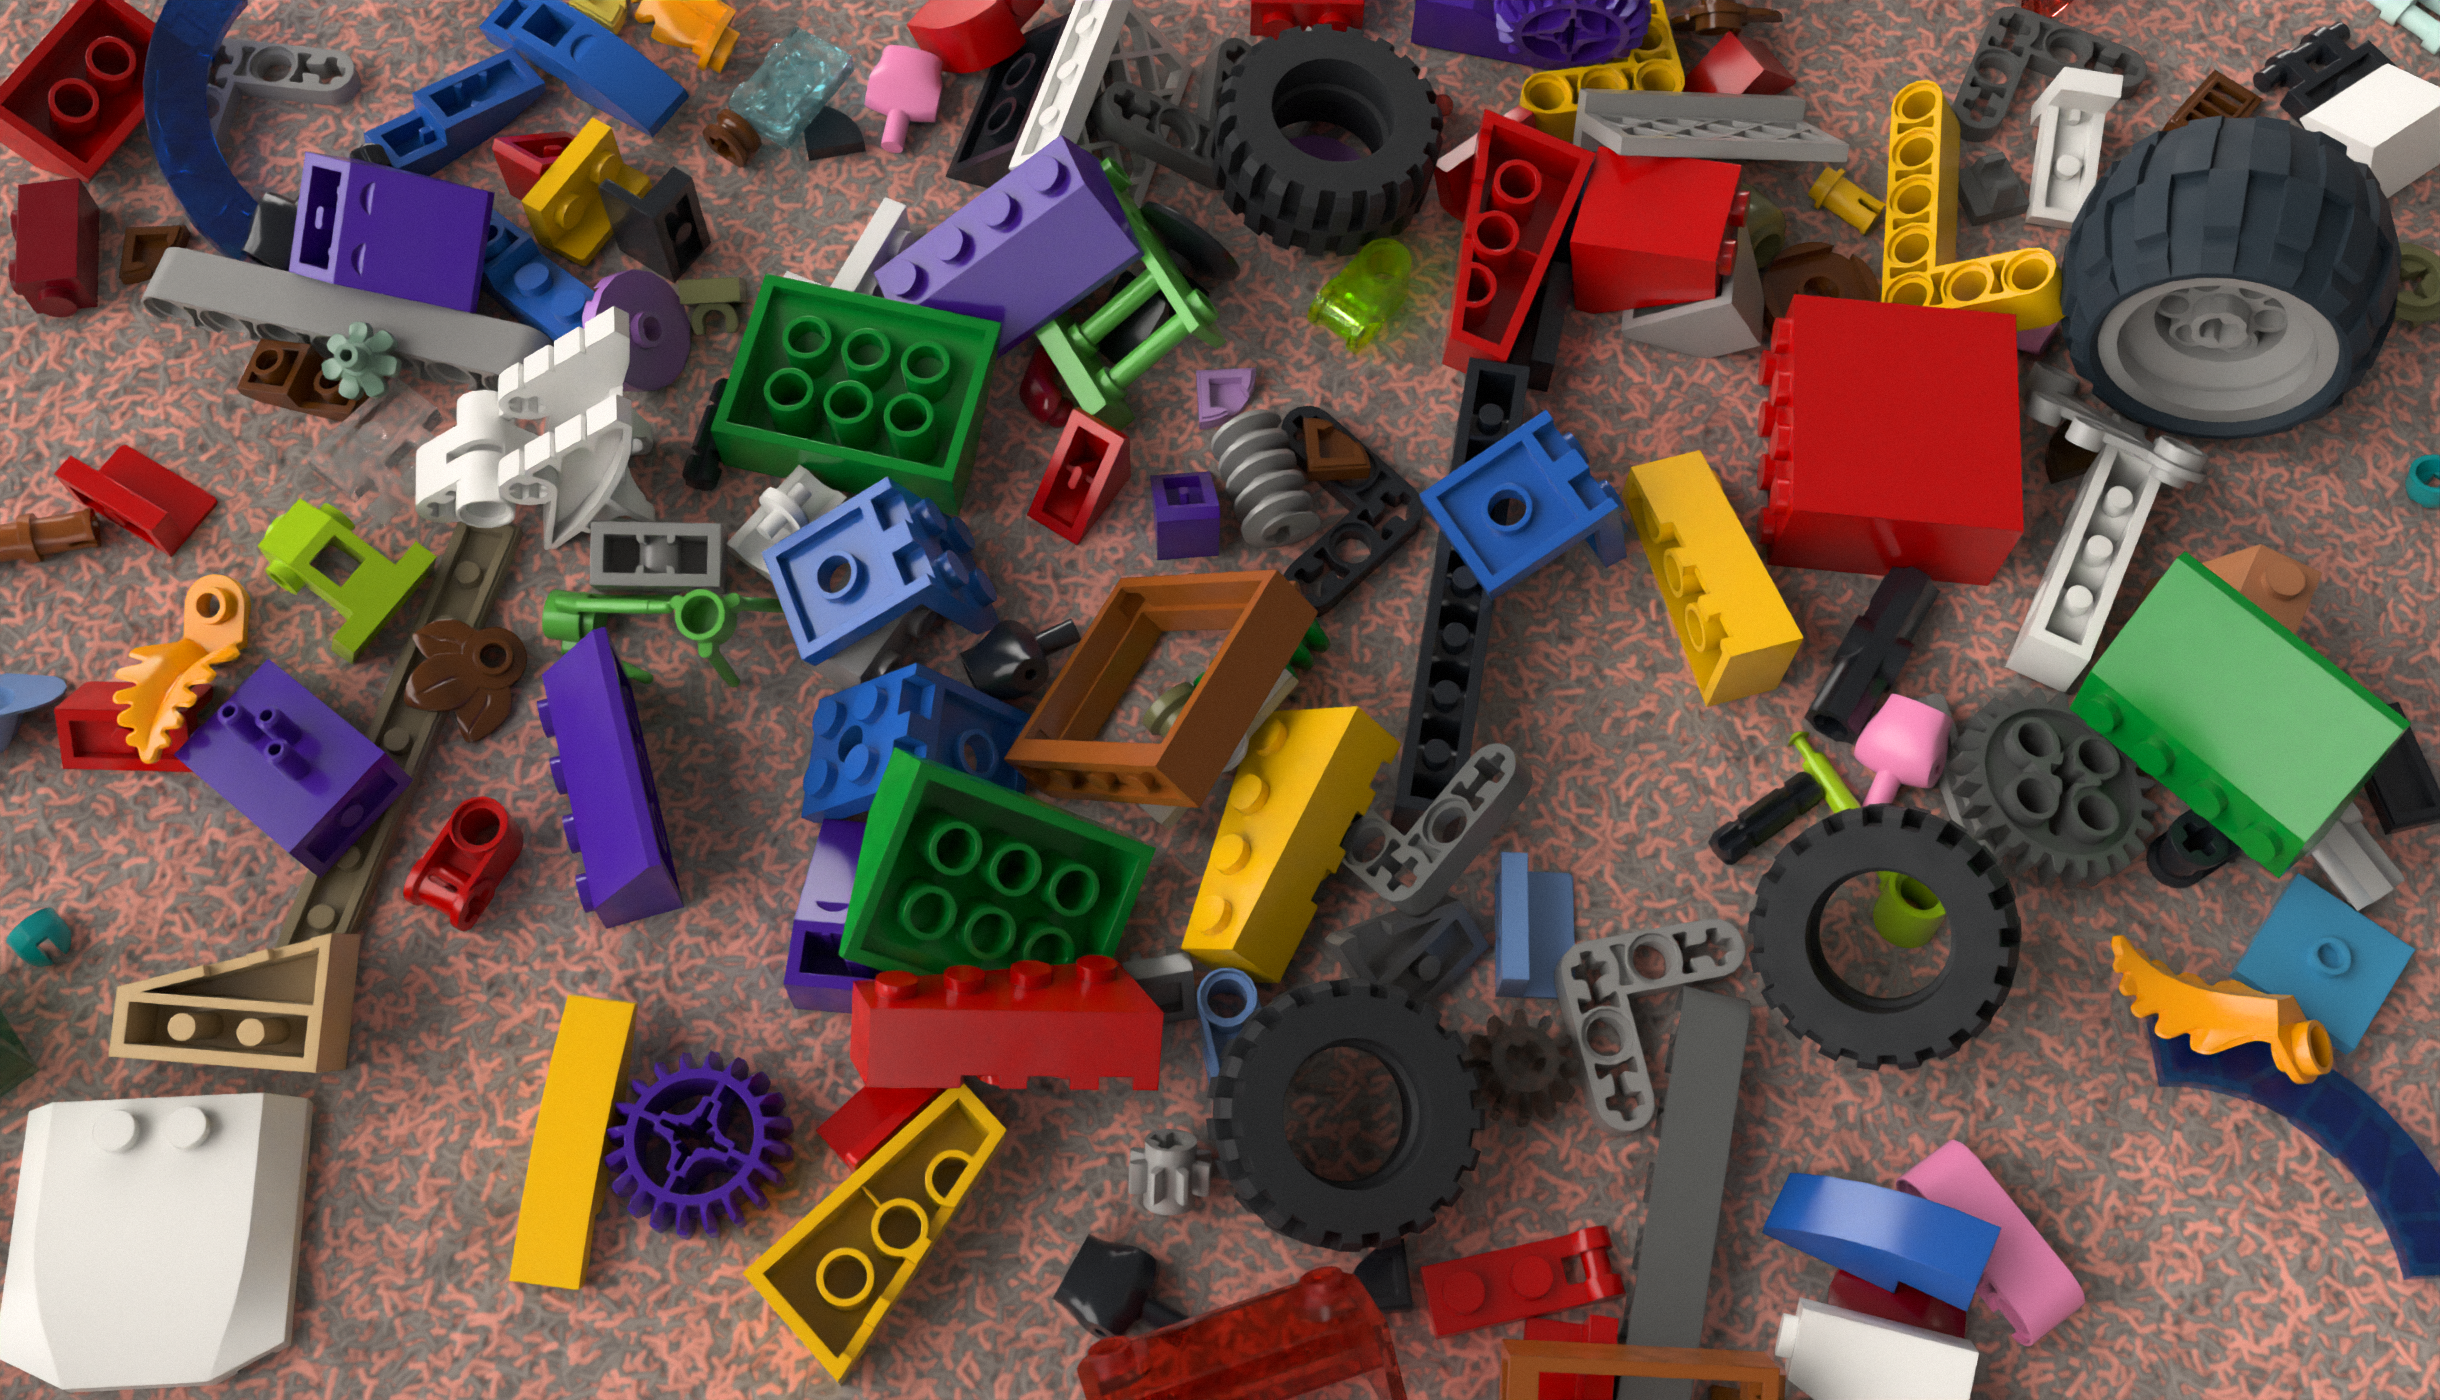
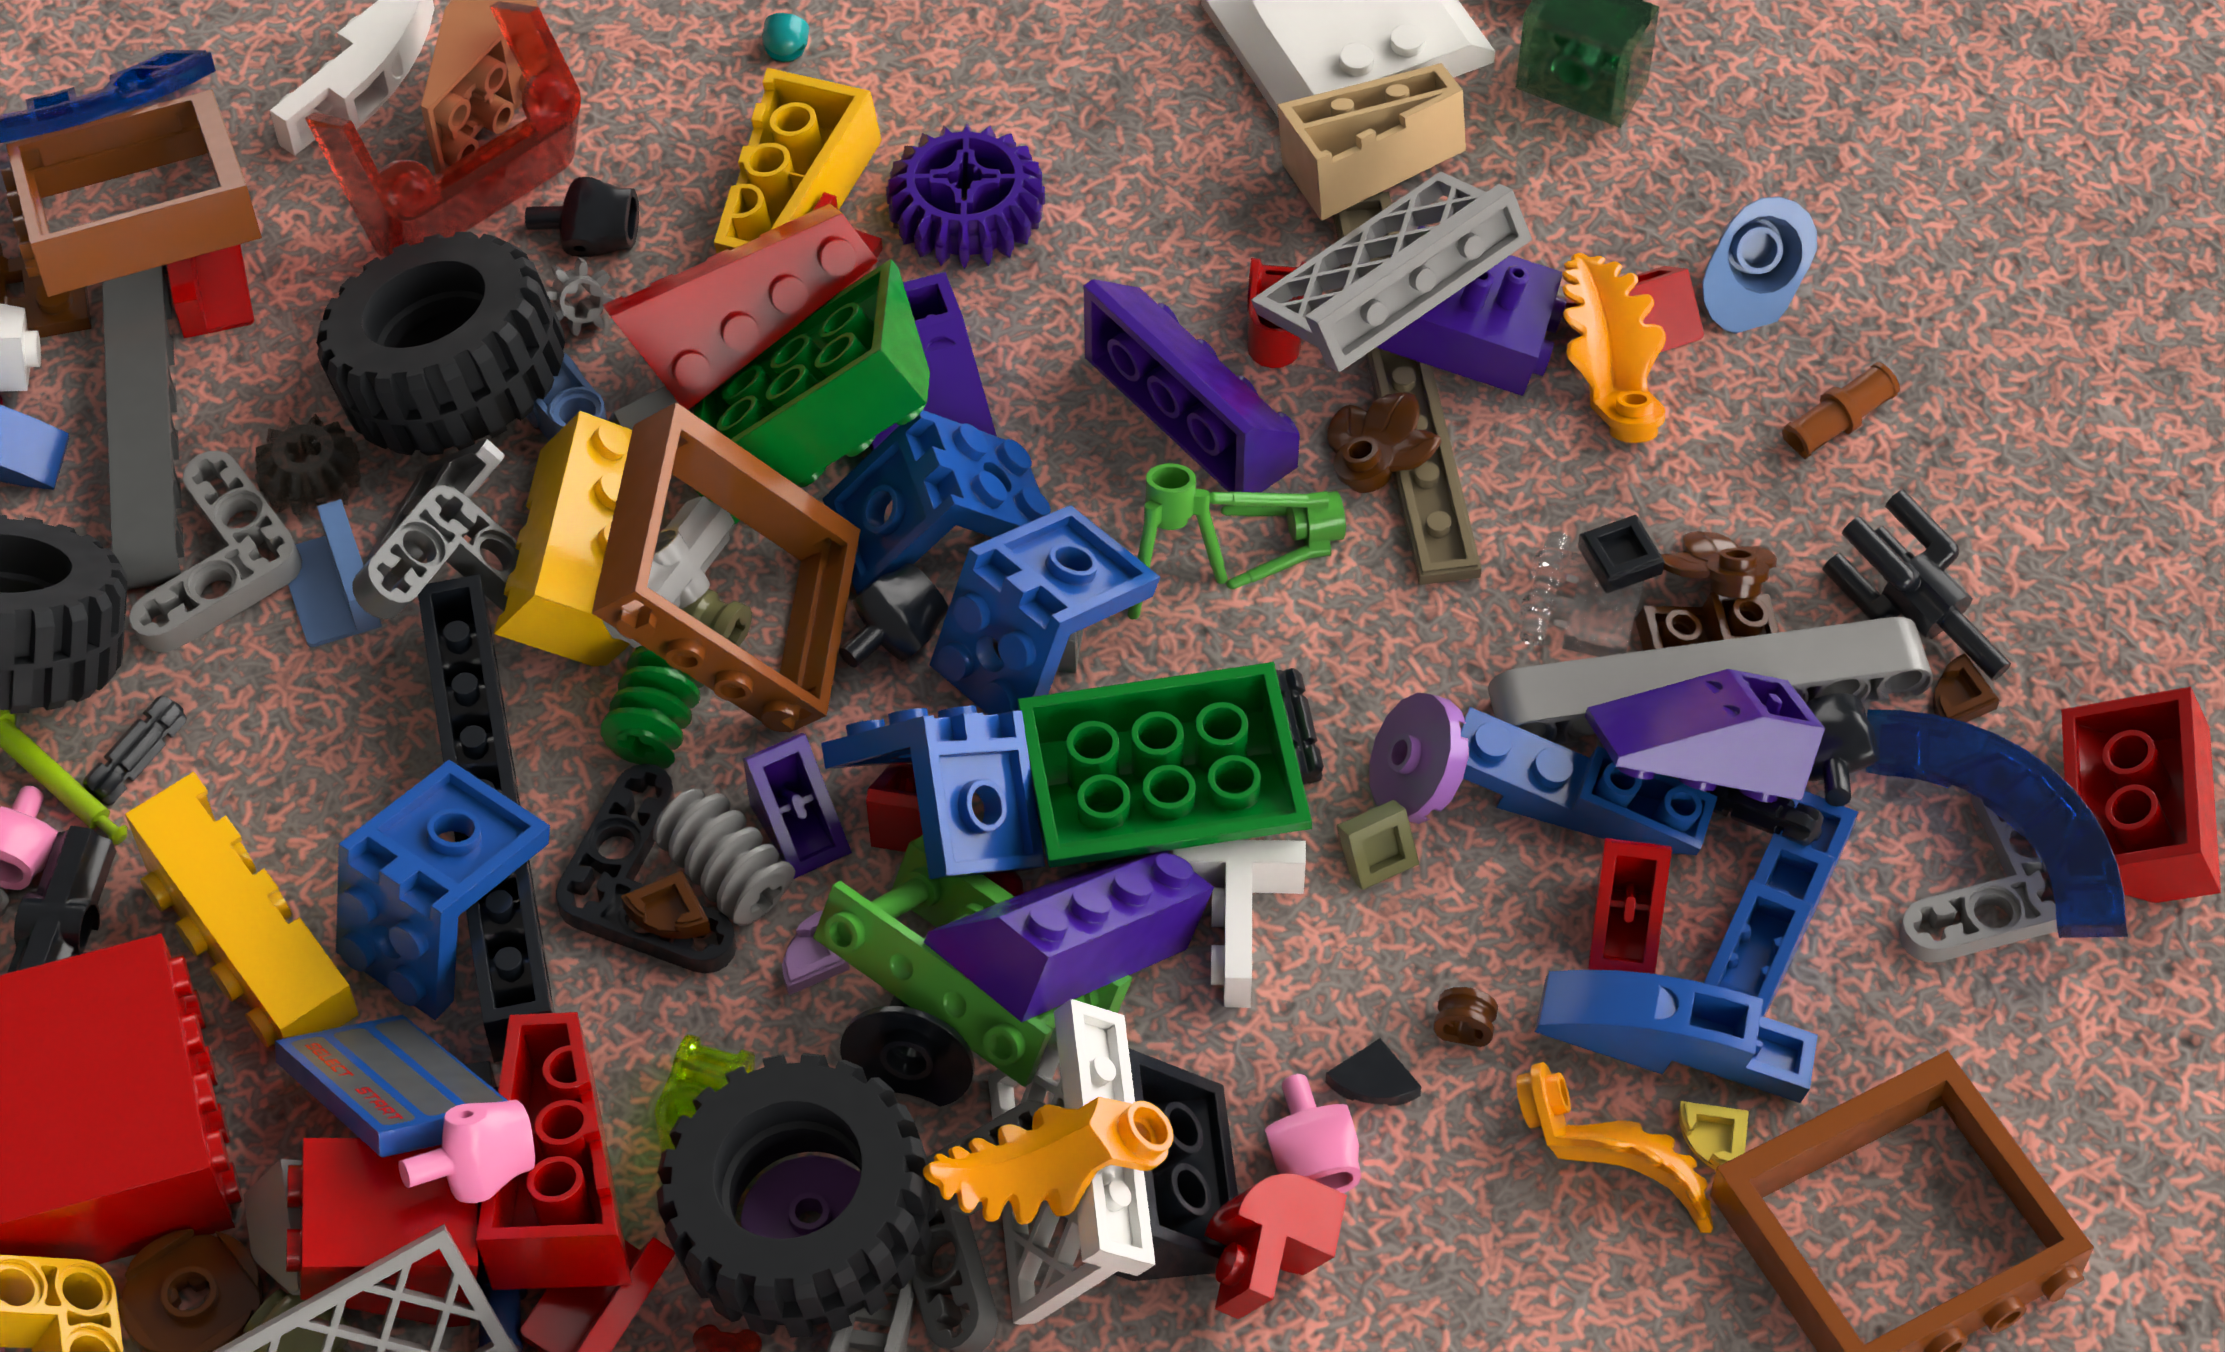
camera: 160 degrees right, 10 degrees down
(36, 929) = (1576, 149): teal hinge -> none
(56, 247) = (2046, 649): dark red brick -> none
(108, 337) = (1915, 584): none -> black plant
(139, 497) = (1778, 473): red panel -> none
(256, 428) = (1732, 569): none -> reddish brown plate
(335, 711) = (1391, 293): none -> light grey fence
(336, 451) = (1621, 554): none -> black tile
(362, 361) = (1655, 626): sand green plant -> none
(369, 594) = (1499, 470): lime tile -> none
(566, 200) = (1564, 887): yellow bracket -> none
(570, 1142) = (1069, 168): yellow slope -> none
(572, 469) = (1397, 604): white piece -> none
(658, 557) = (1263, 570): light grey brick -> none
(661, 229) = (1472, 846): black panel -> none
(781, 513) = (1166, 639): white hips -> none
(791, 86) = (1431, 1079): clear light blue bracket -> none
(1037, 425) = (950, 762): none -> blue bracket
(1122, 59) = (1053, 1158): none -> light orange plant
(1519, 1283) = (255, 339): red plate -> none
(1562, 200) = (479, 1151): none -> bright pink piece
(1622, 335) = (383, 1081): none -> tile

